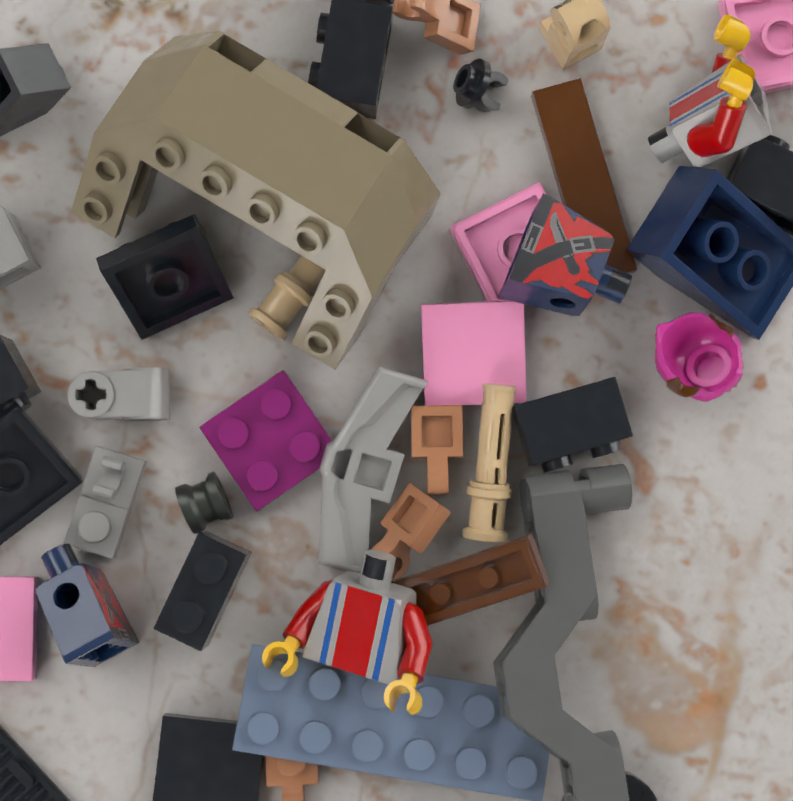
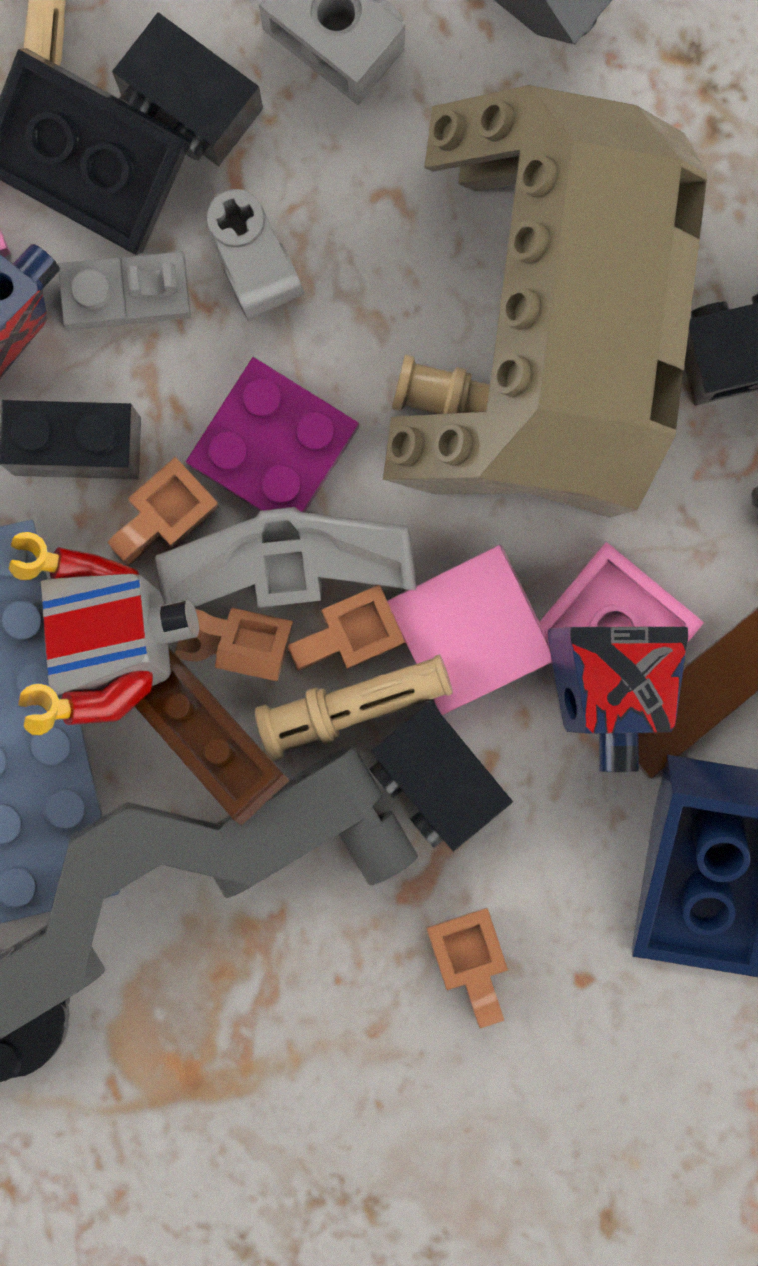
camera: 70 degrees right, 0 degrees up
(165, 277) = (406, 243): black bracket -> none
(203, 503) = (169, 398): pearl dark grey wheel -> none
(284, 538) = (168, 506): none -> nougat plate
(698, 356) = (579, 890): dark pink hair -> none
(711, 457) = (468, 956): none -> nougat plate

